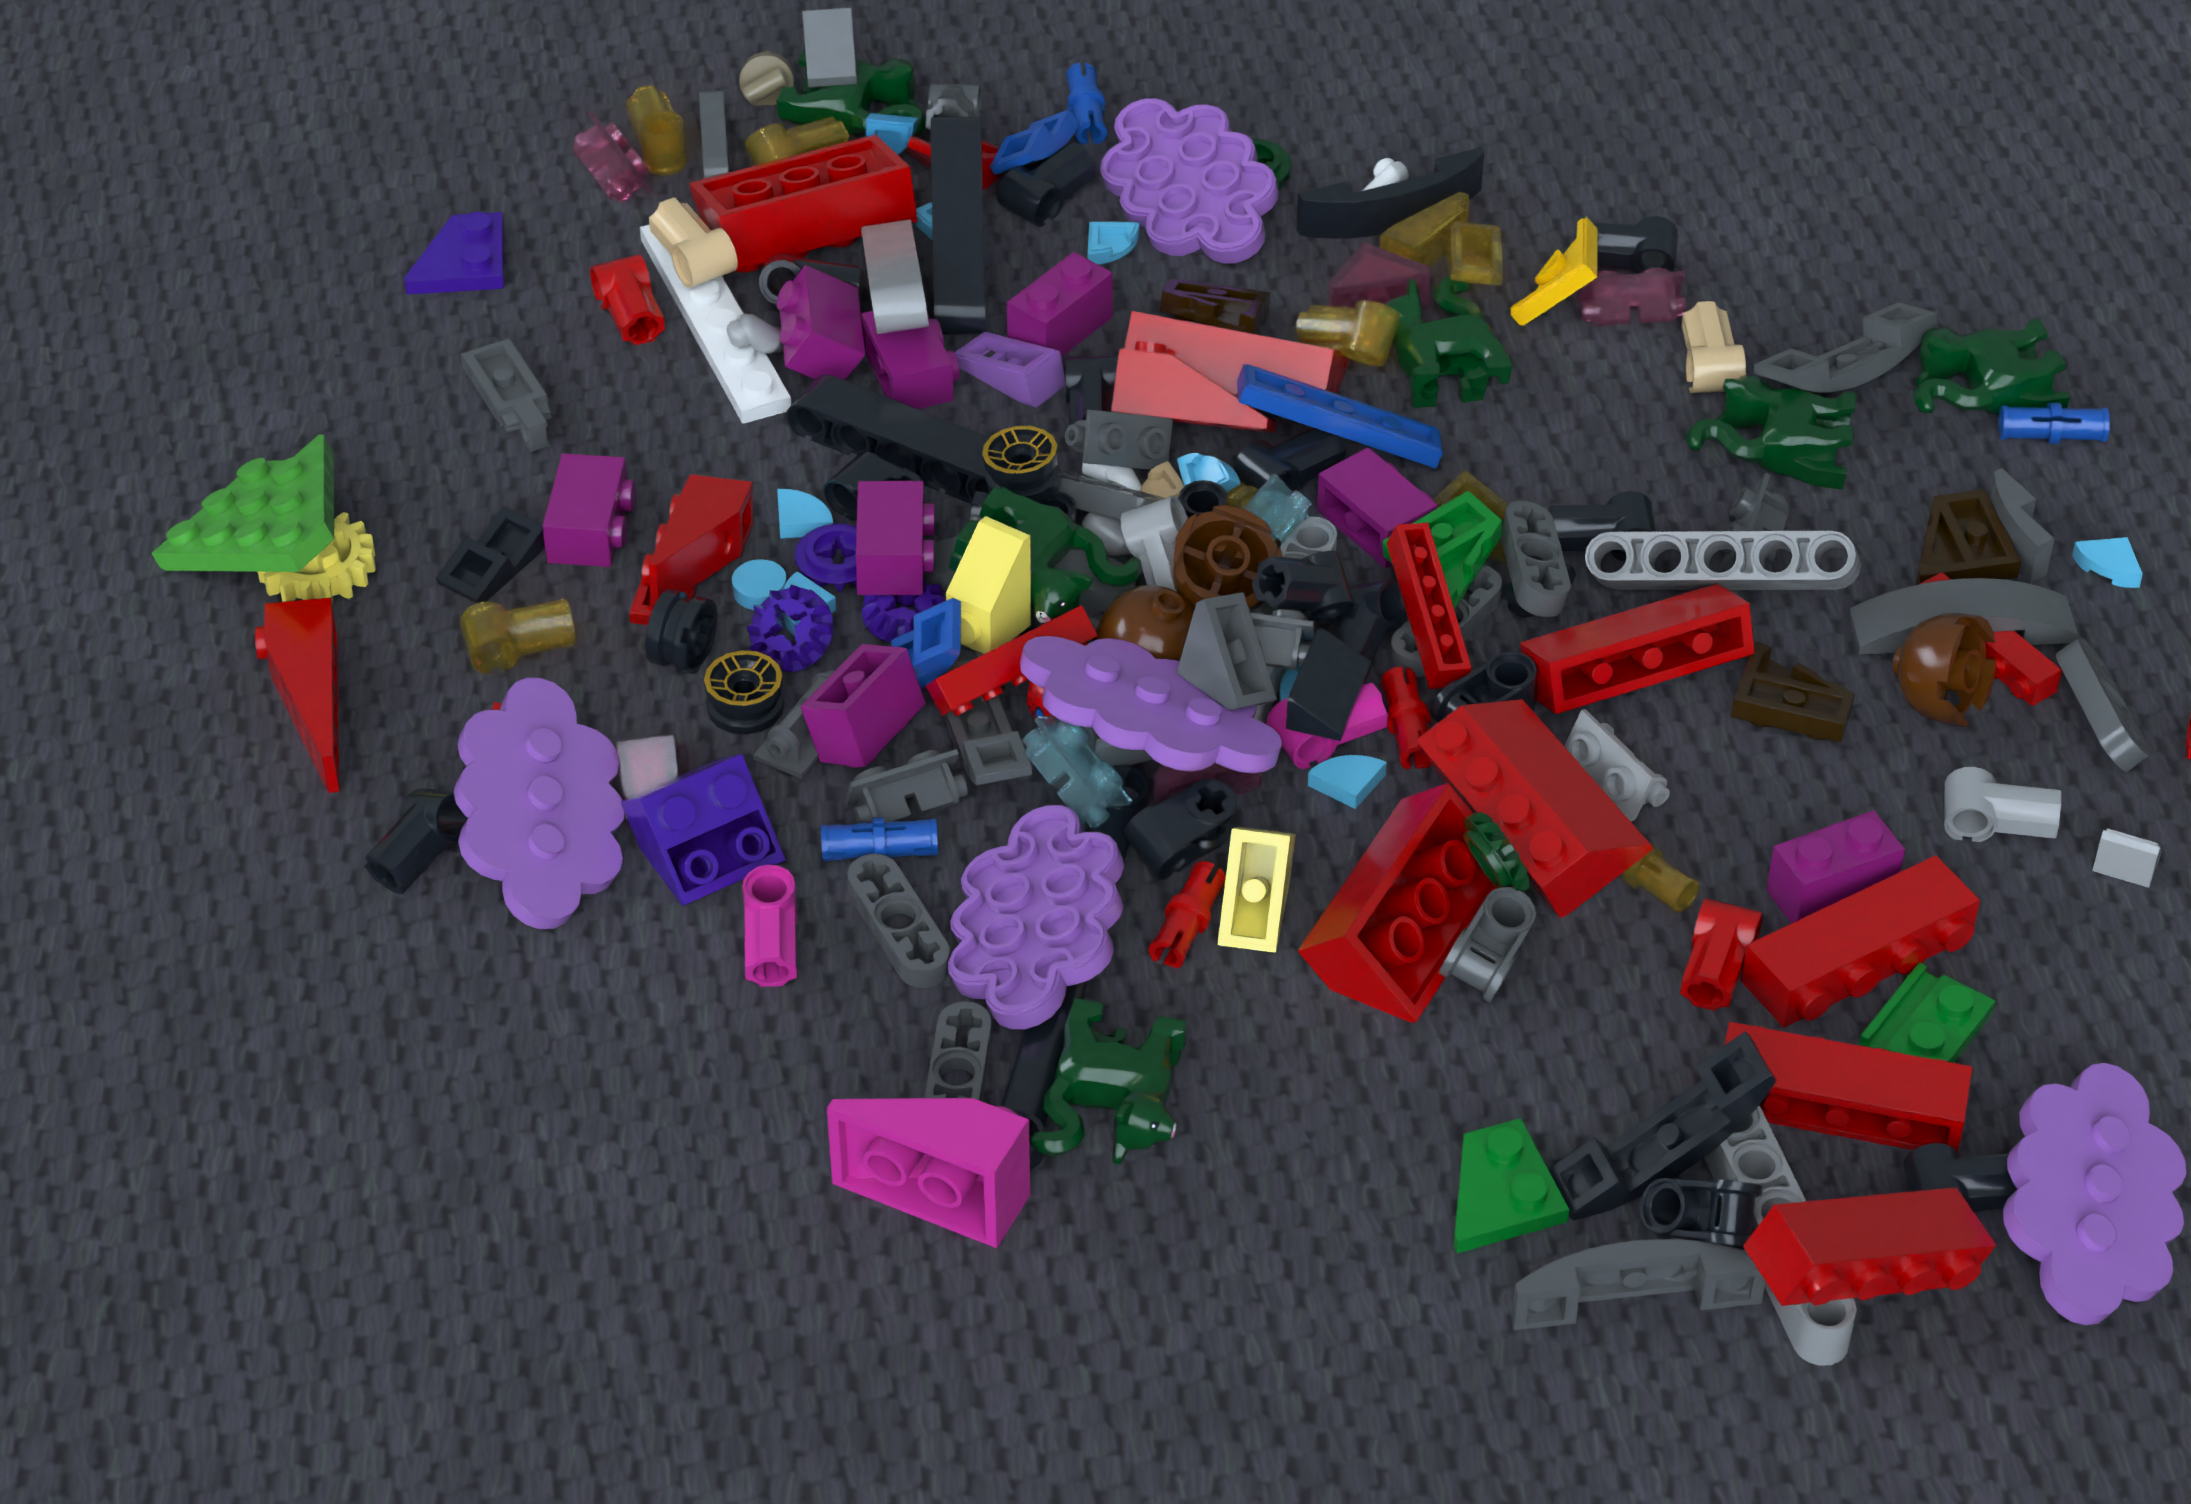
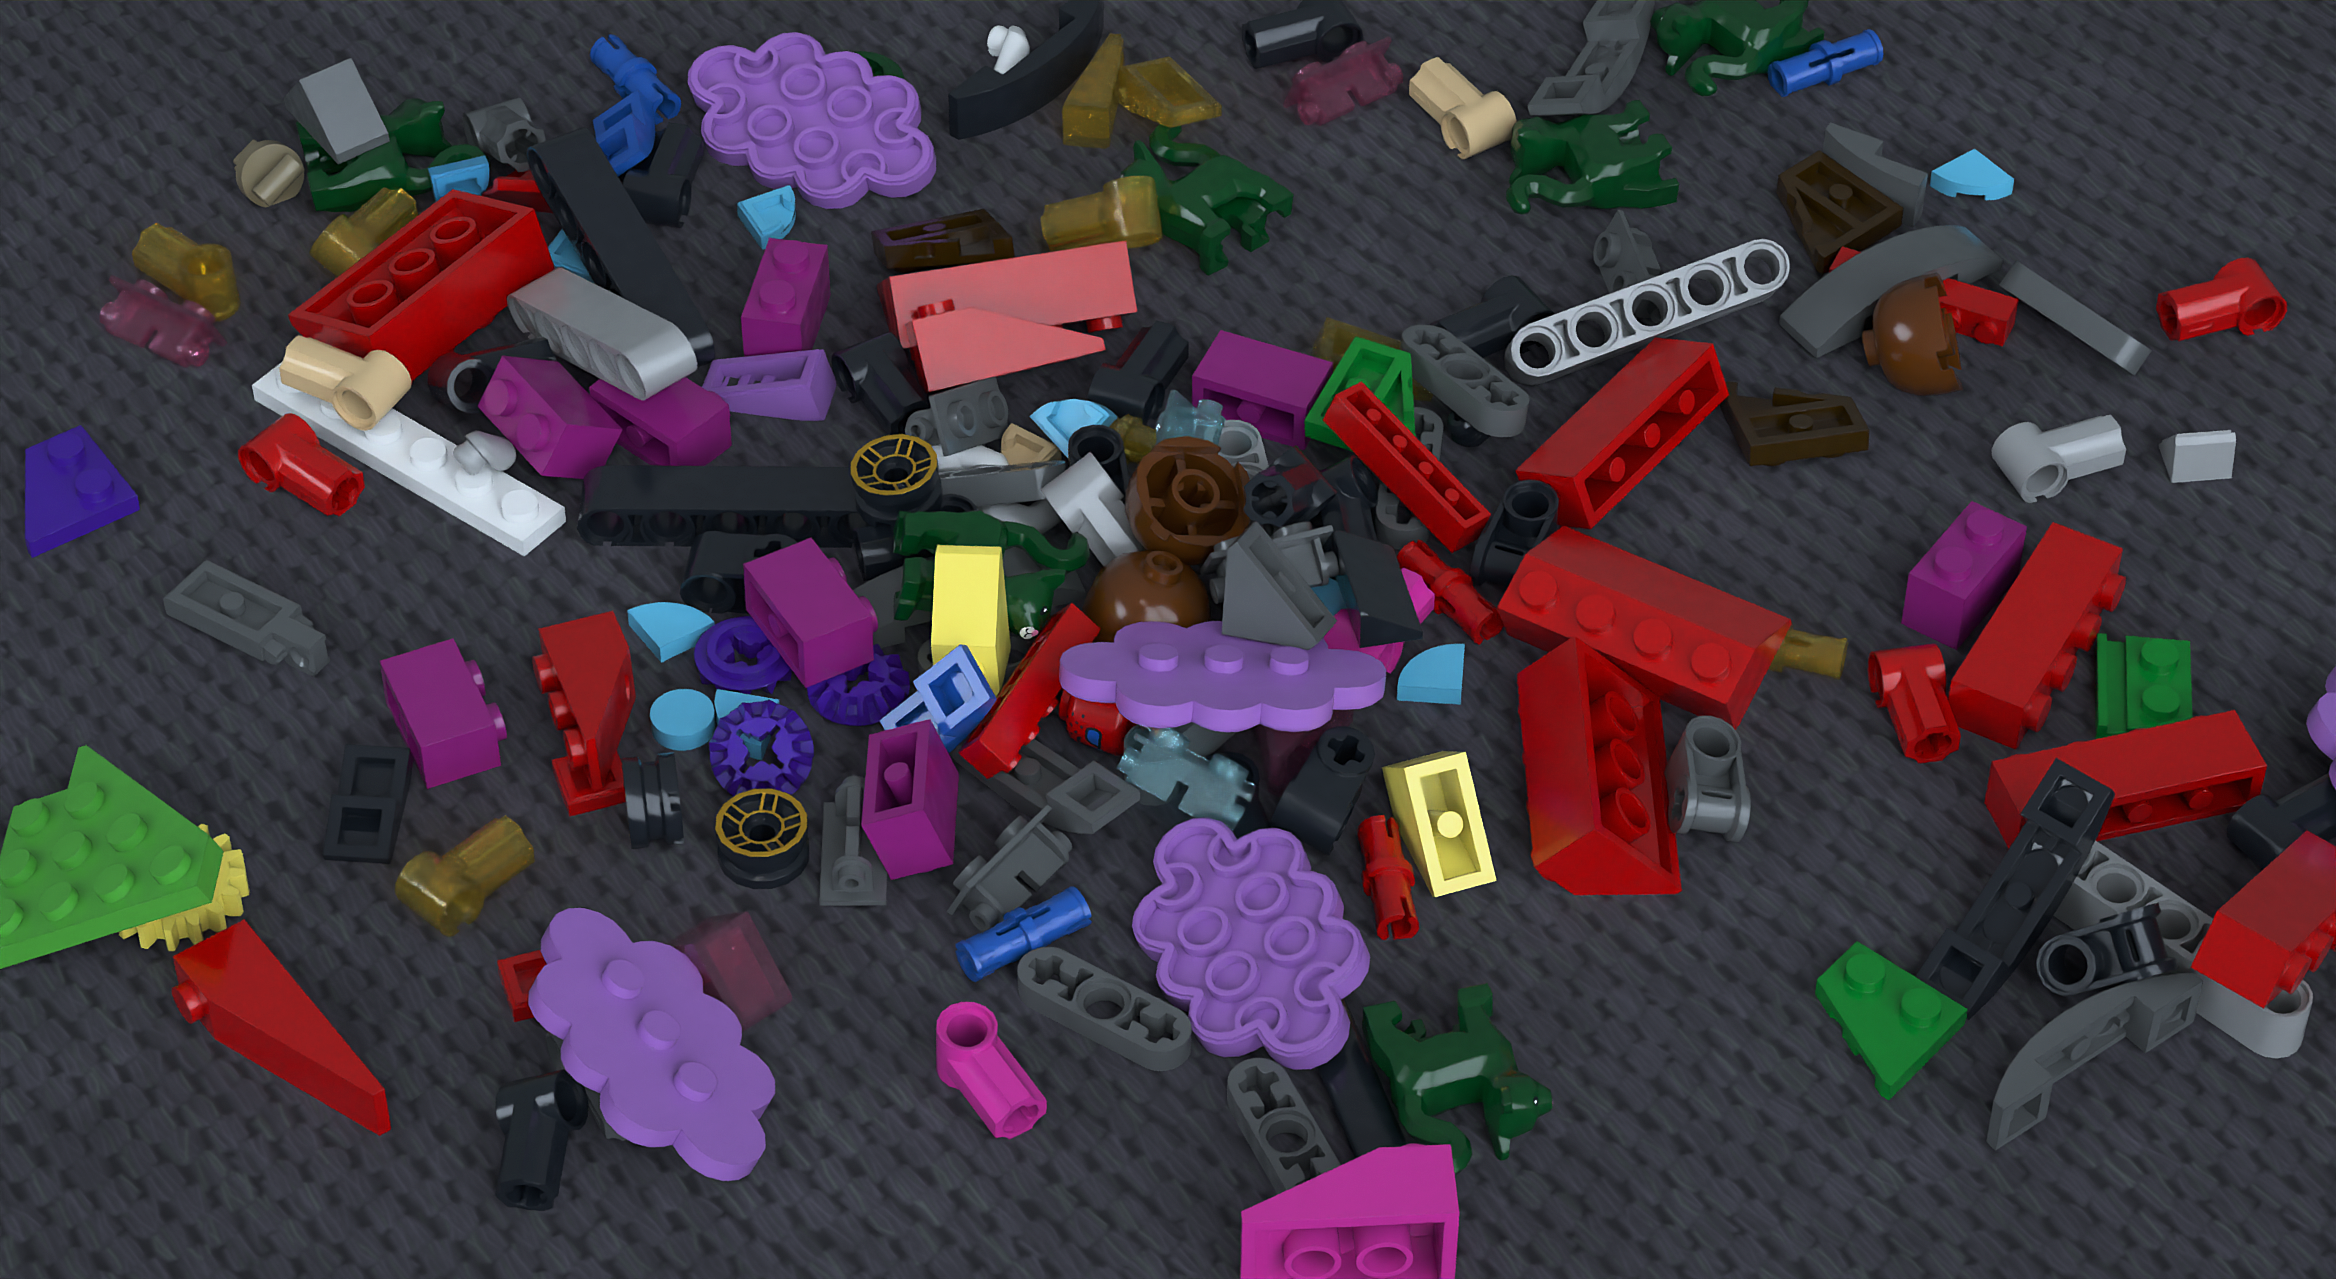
camera: 30 degrees left, 0 degrees up
(704, 828) = (834, 997): dark purple slope -> none
(713, 133) = (262, 258): dark grey beam -> none
(1339, 415) = (1165, 308): blue tile -> none
(1377, 277) = (1090, 155): clear pink slope -> none
(1494, 853) = (1662, 688): dark green gear -> none
(1561, 274) = (1270, 83): yellow tile -> none
(1614, 766) = (1684, 552): light grey hinge -> none

